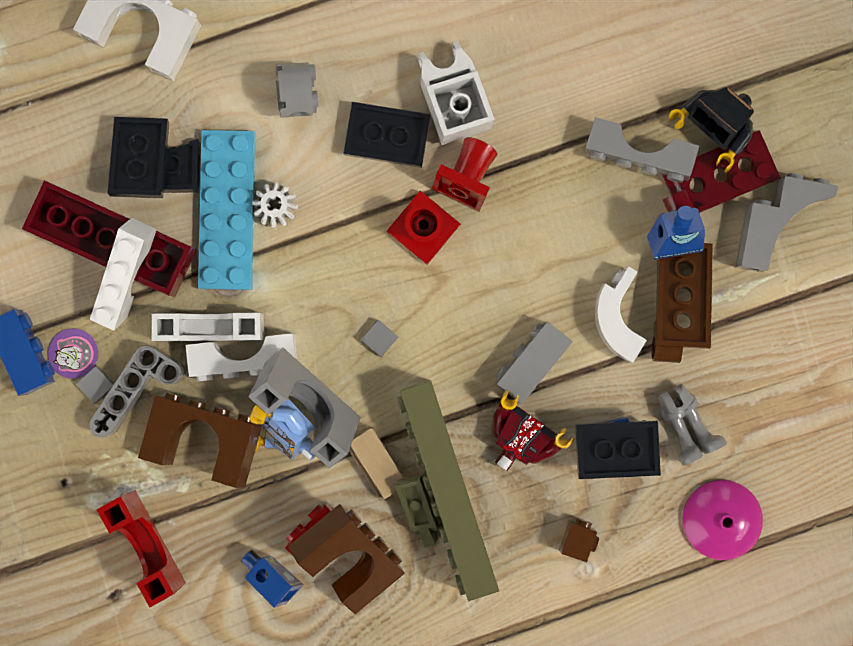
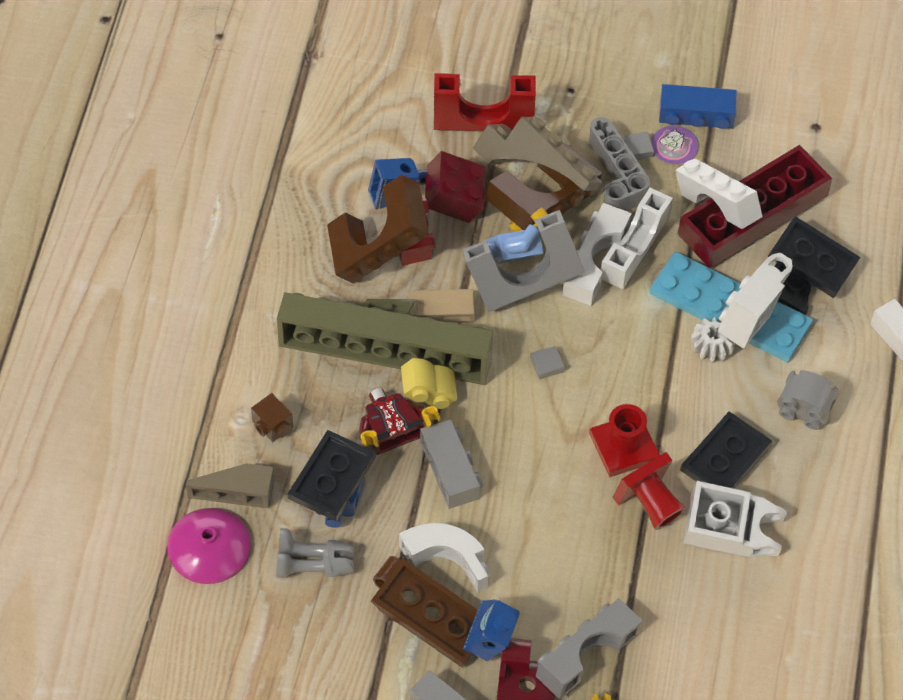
camera: 120 degrees right, 30 degrees down
(167, 465) = (534, 143): none -> dark tan arch
(227, 177) = (754, 302): none -> white brick
(249, 521) = (455, 186): none -> dark red brick
(471, 424) = (429, 383): none -> light yellow brick
(655, 521) = (236, 485): none -> dark tan slope

